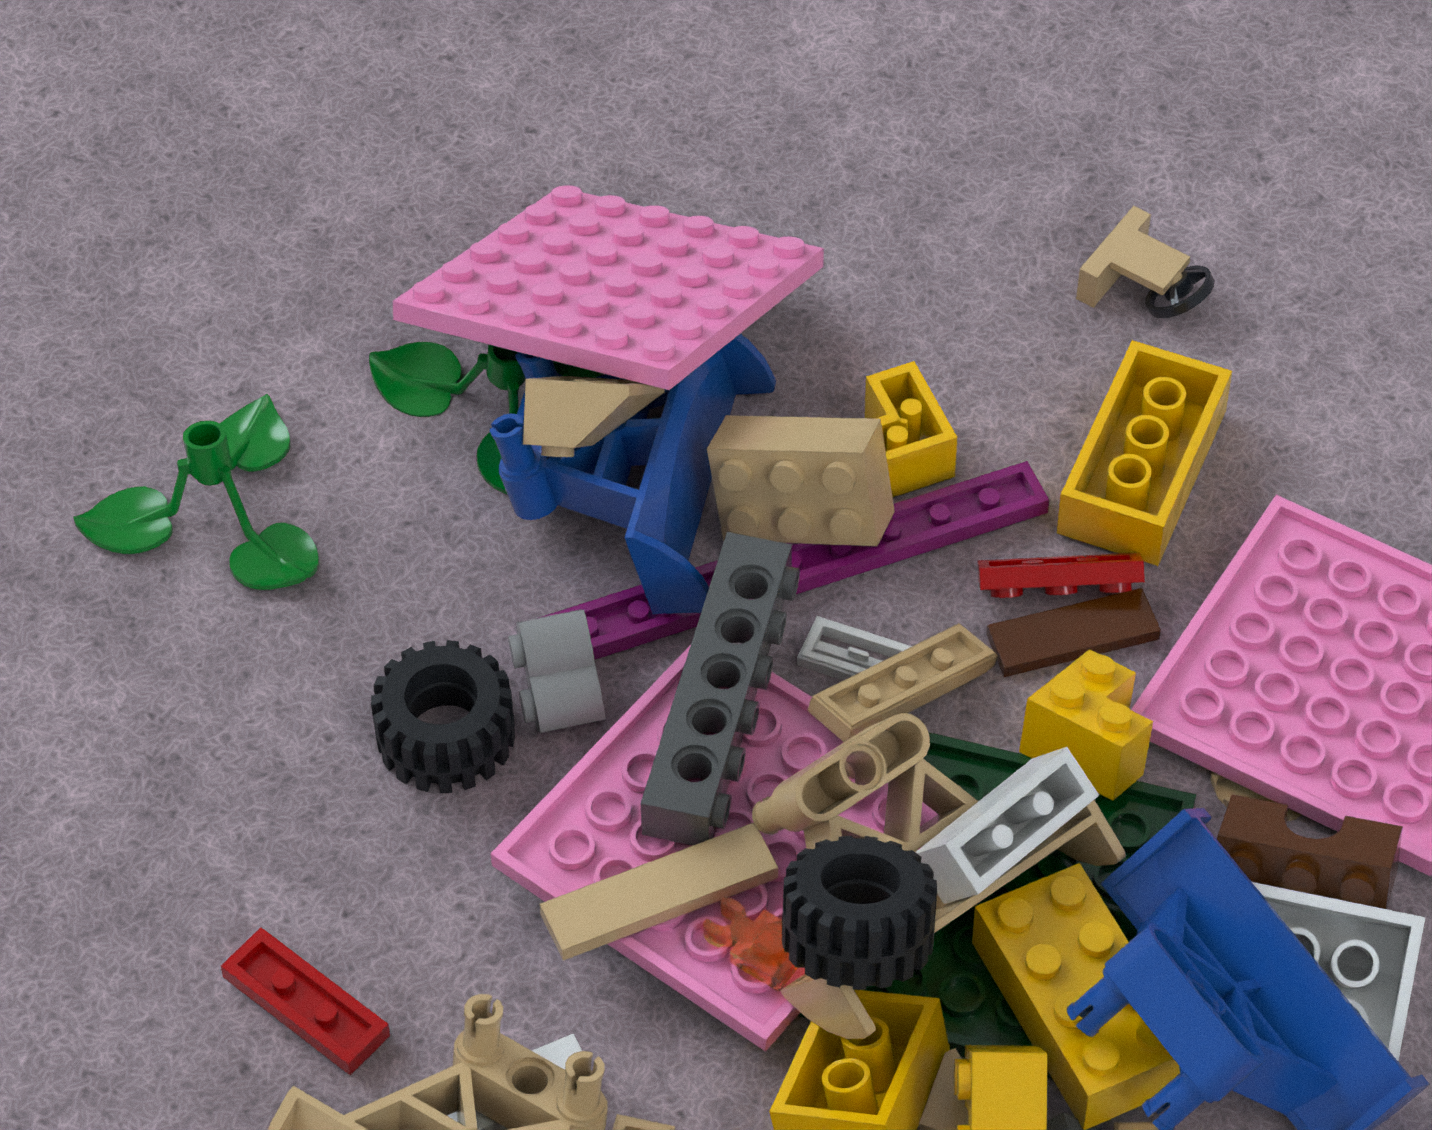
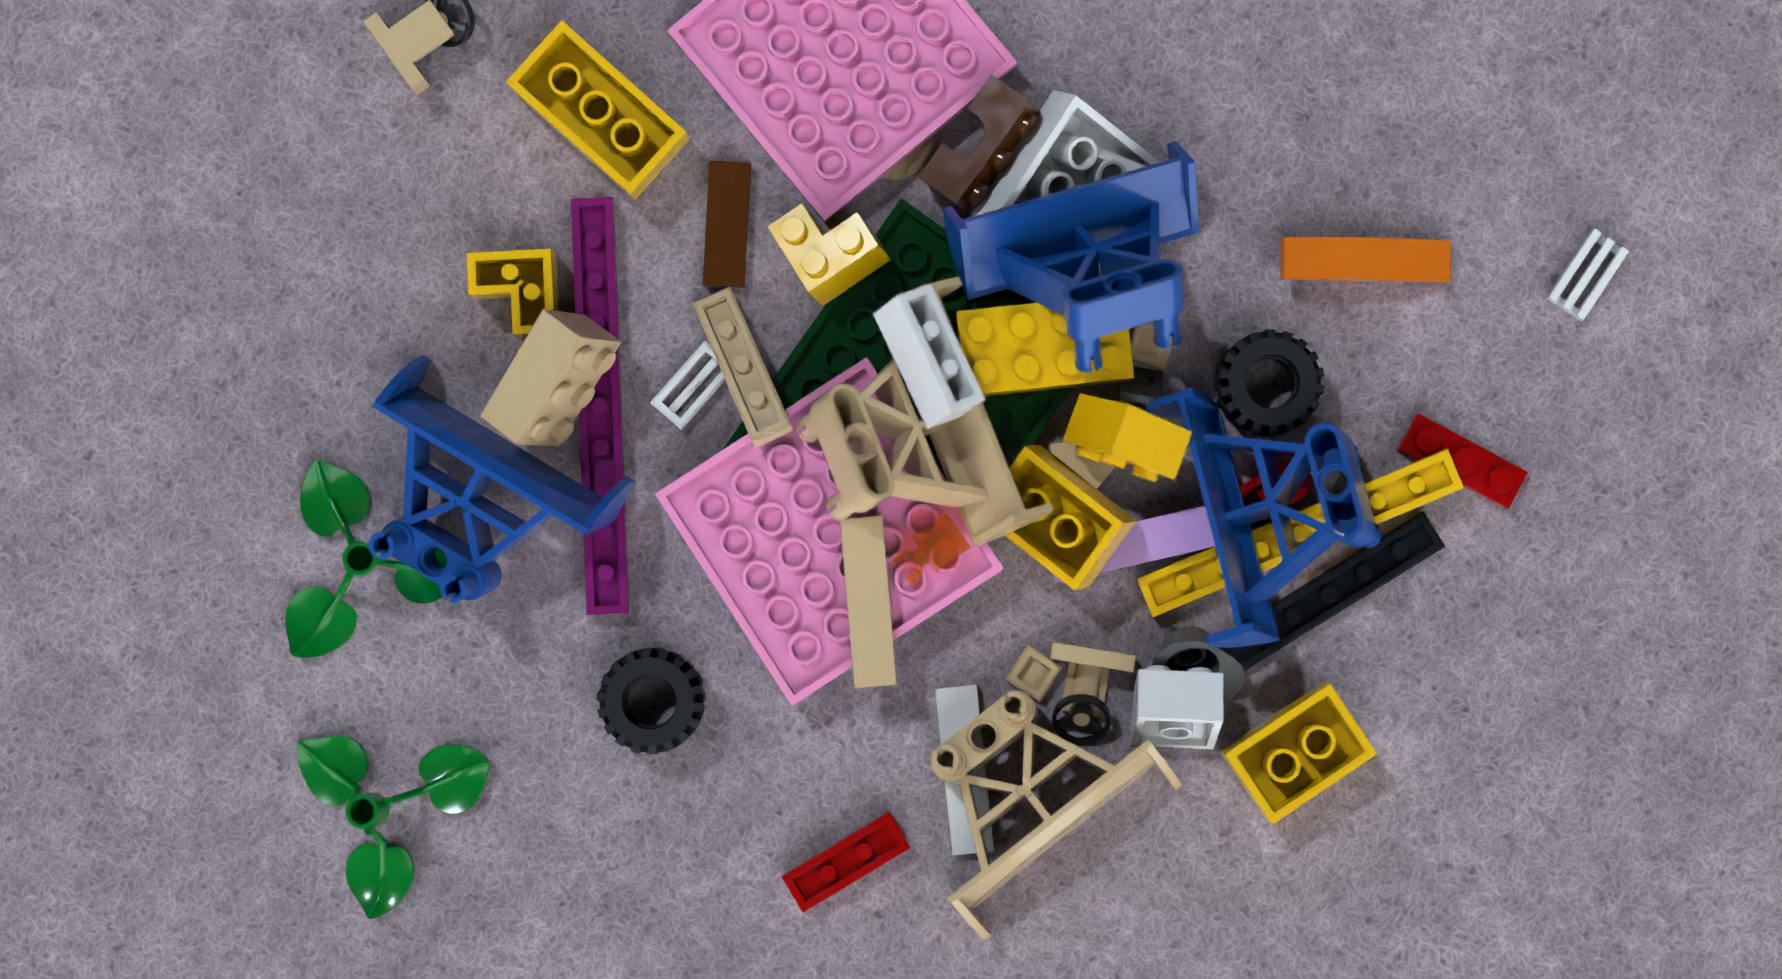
camera: 70 degrees left, 35 degrees up
(558, 671) = (646, 608): light grey brick -> none
(579, 410) = (449, 522): tan slope -> none
(610, 286) = (320, 459): bright pink plate -> none
(740, 607) = (625, 453): dark grey brick -> none
(859, 912) = (957, 470): black tyre -> none
(1061, 574) = (678, 214): red plate -> none

